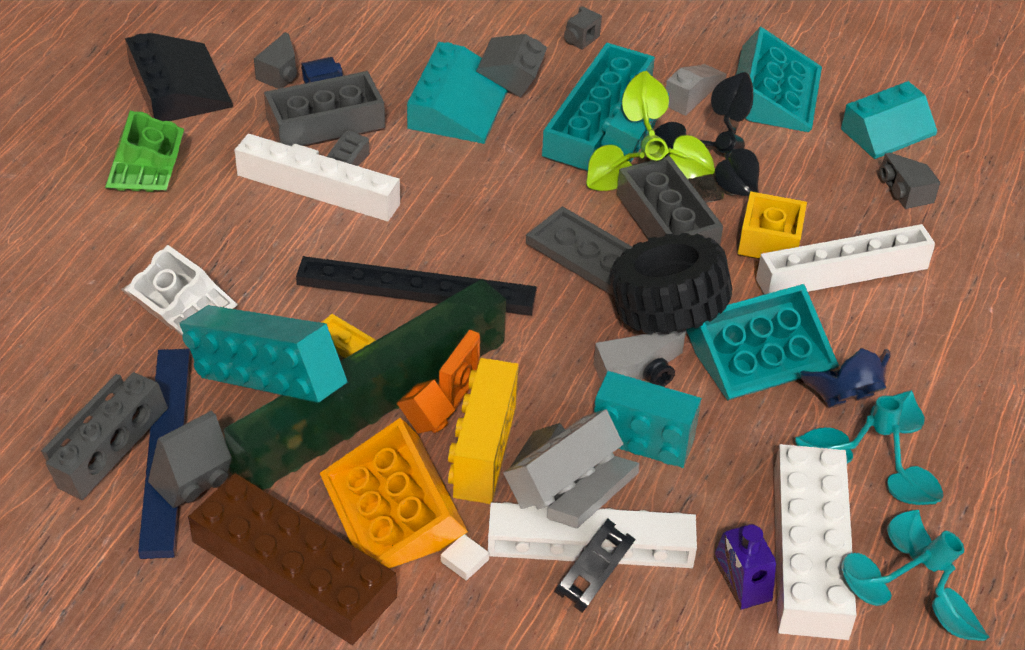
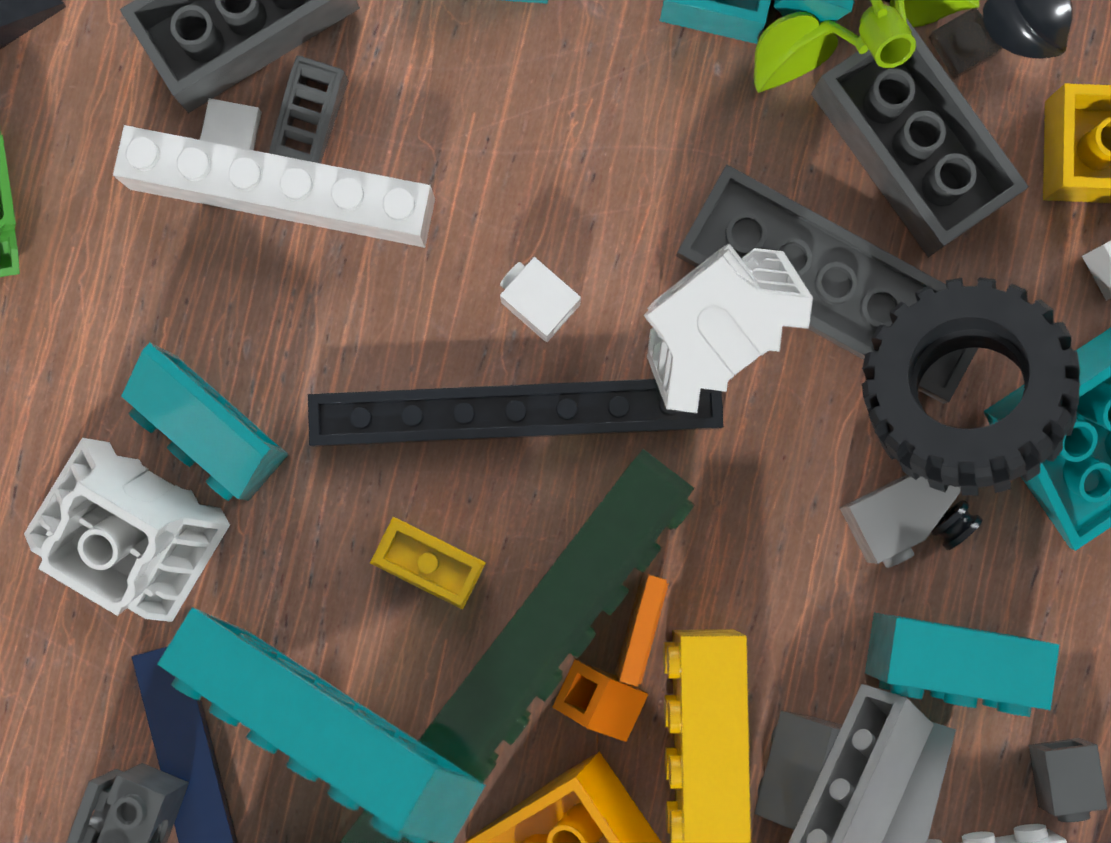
camera: 10 degrees left, 40 degrees up
(242, 253) = (200, 424): none -> teal slope
(444, 242) = (538, 298): none -> white brick
(537, 241) = (722, 321): none -> white slope
(706, 497) = (1068, 778): none -> dark grey brick

